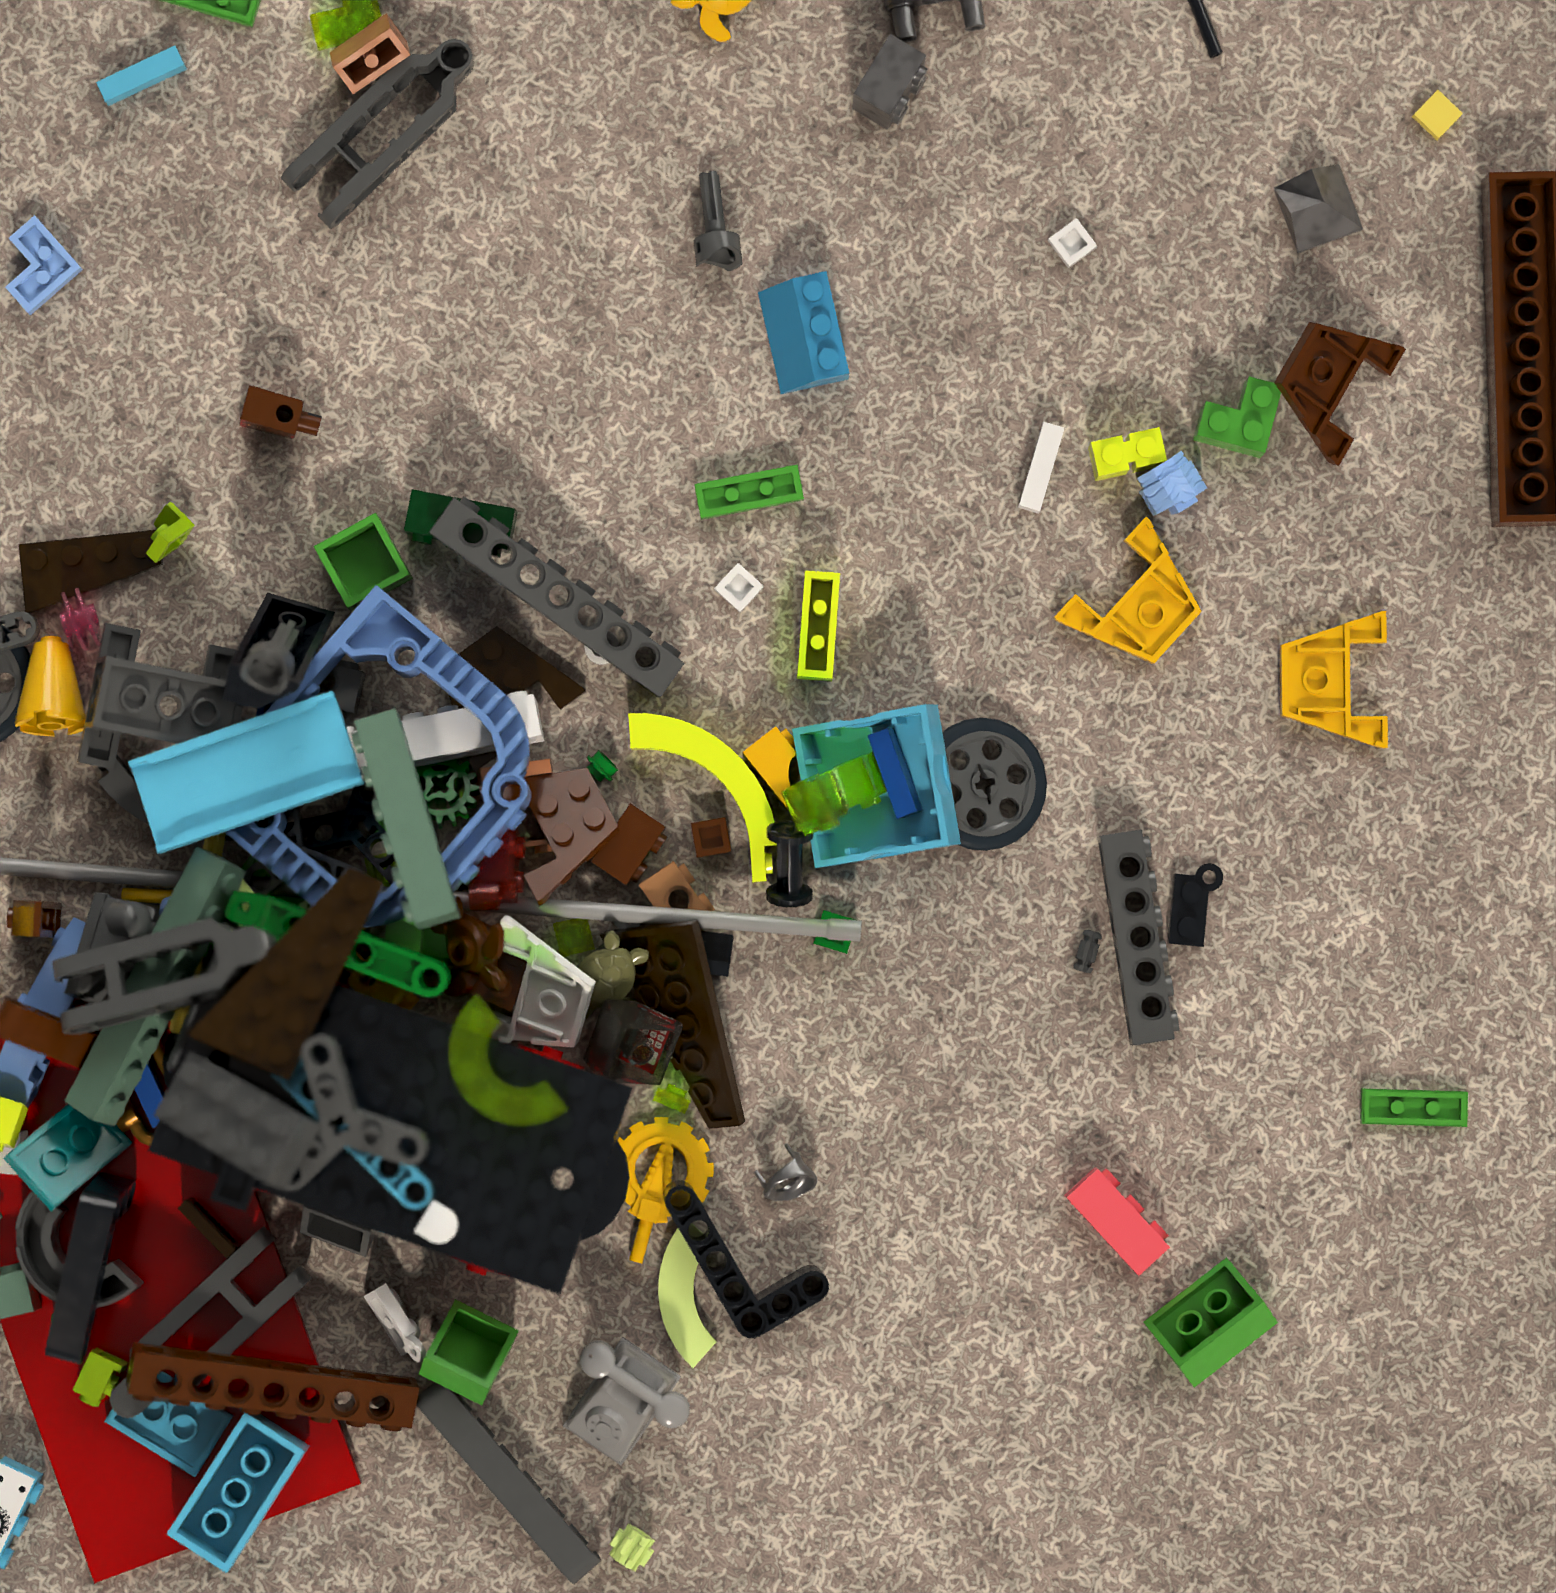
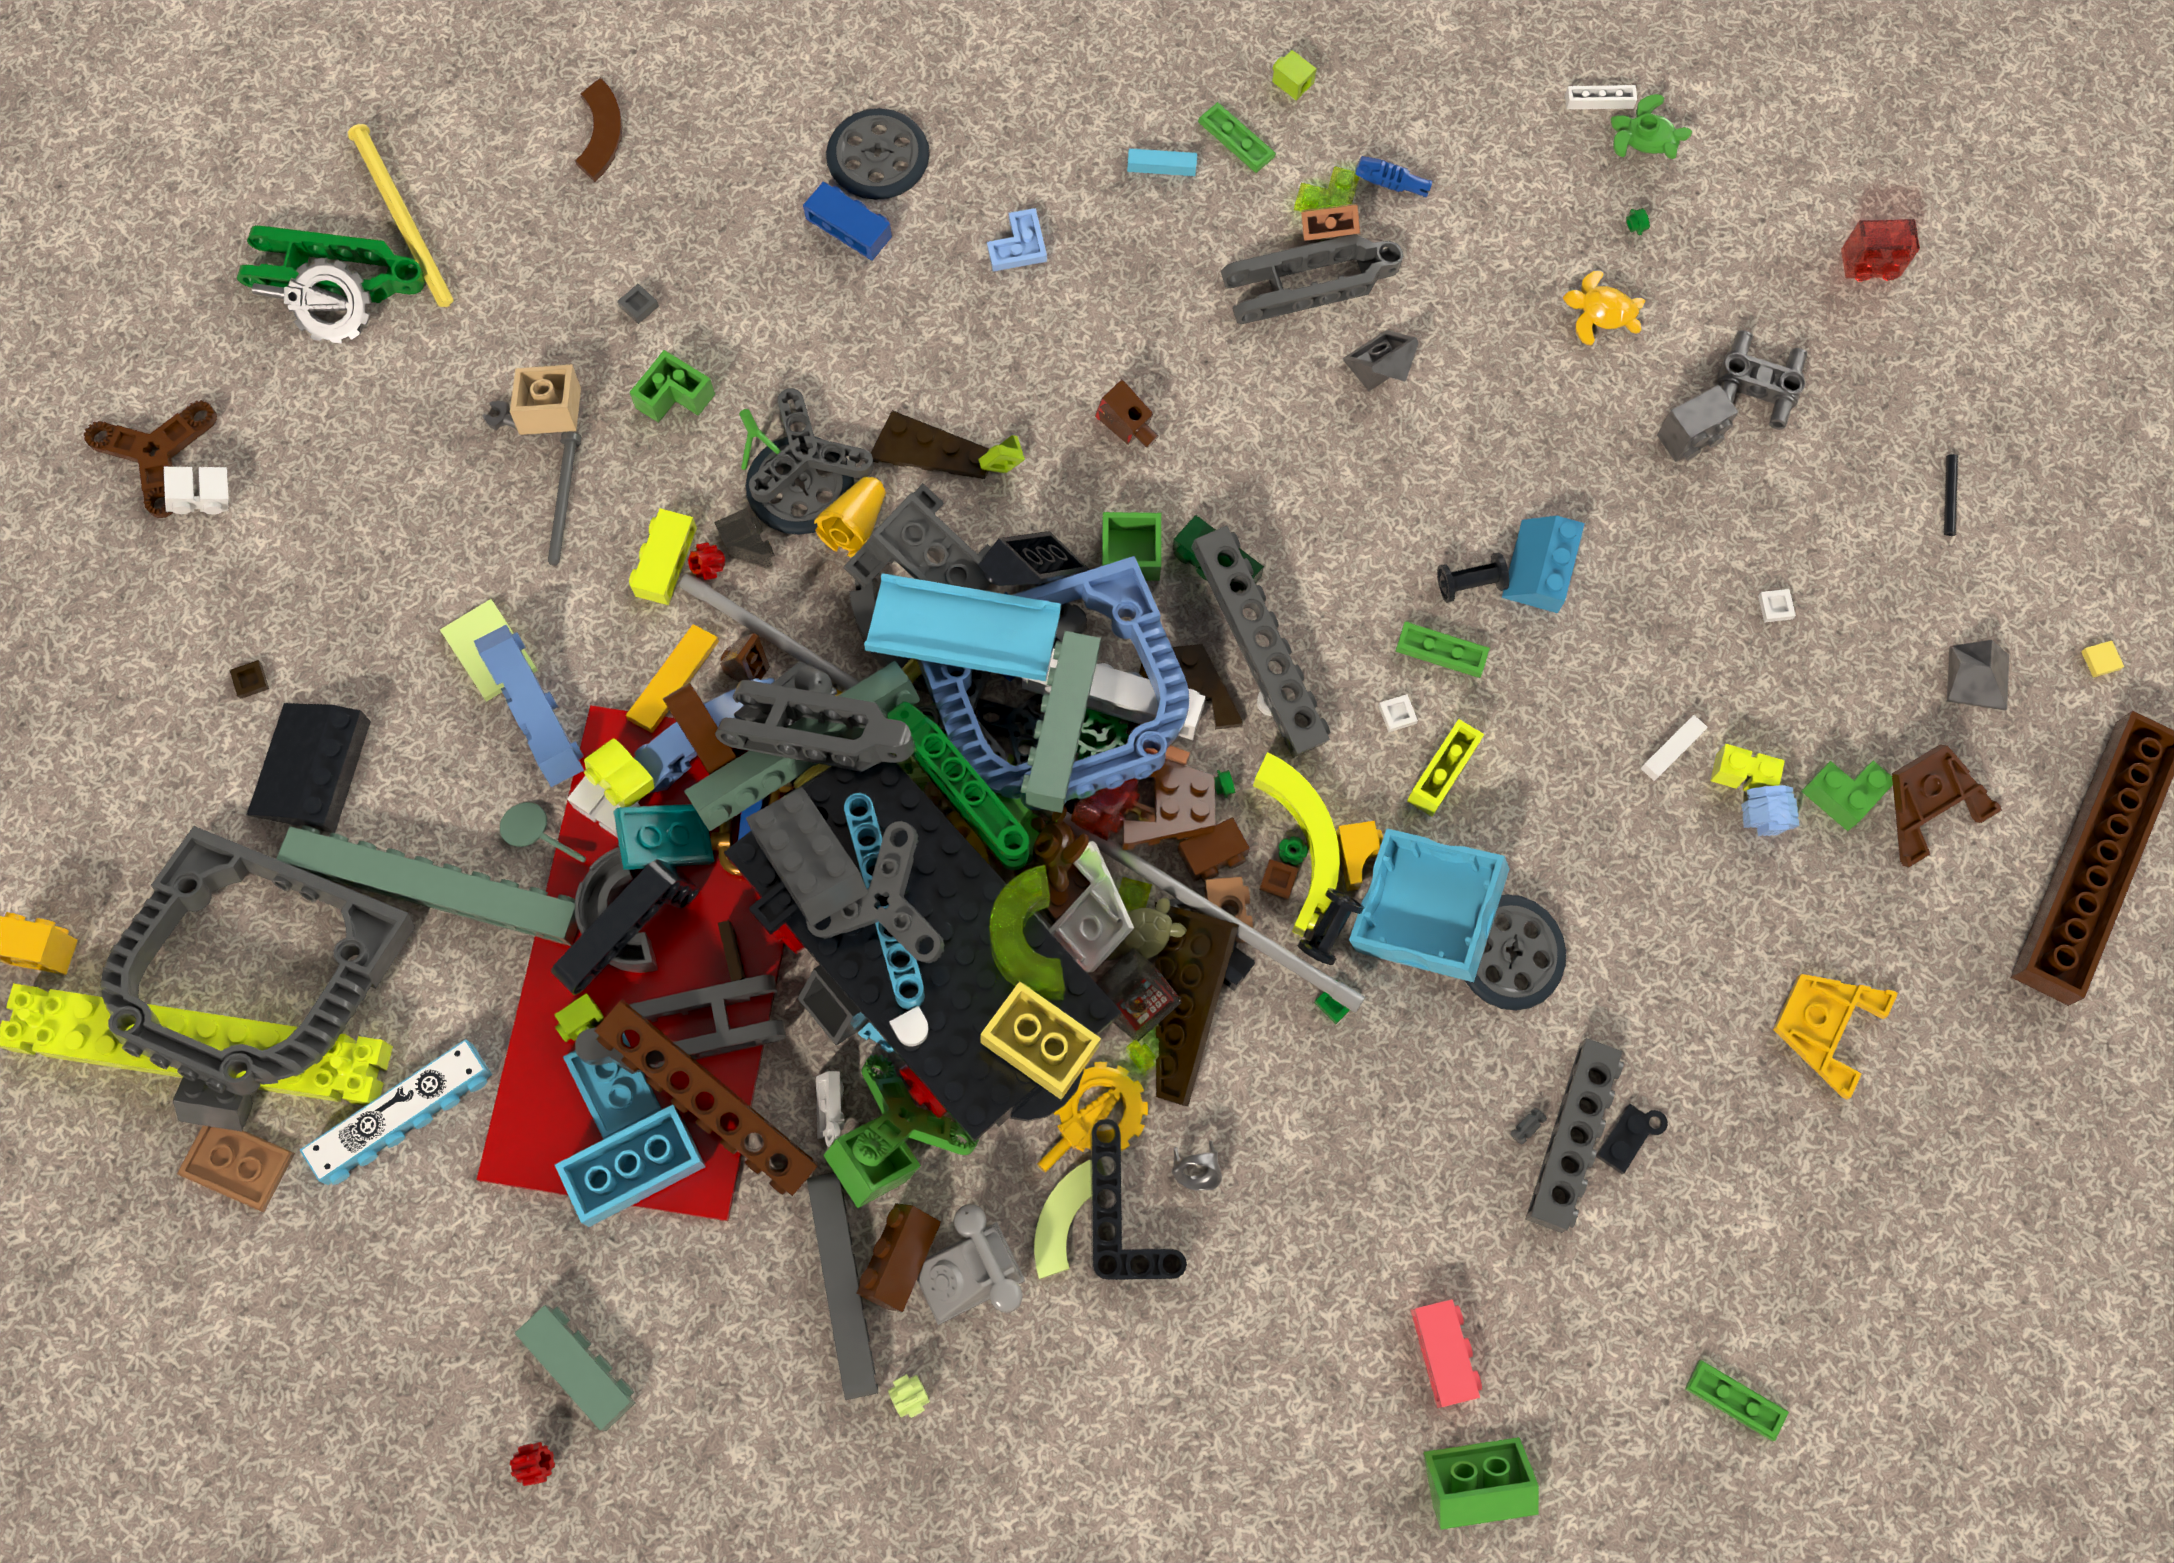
camera: 30 degrees right, 15 degrees down
(79, 621) = (903, 478): clear pink piece -> none
(270, 662) = (1028, 551): dark grey piece -> none
(284, 994) = (908, 781): dark brown wing -> none
(470, 1315) = (891, 1130): none -> bright green piece
(512, 186) = (1383, 358): none -> flat silver slope
(547, 1427) = (898, 1257): none -> reddish brown brick
(570, 1169) = (1040, 1040): none -> light yellow brick
(699, 798) = (1289, 857): none -> green plate
(716, 244) = (1510, 469): dark grey piece -> none
(739, 394) = (1468, 578): none -> black hose
(827, 796) = (1388, 883): clear neon green brick -> none
(895, 773) = (1449, 902): blue piece -> none
(1149, 613) = (1705, 896): yellow wing -> none

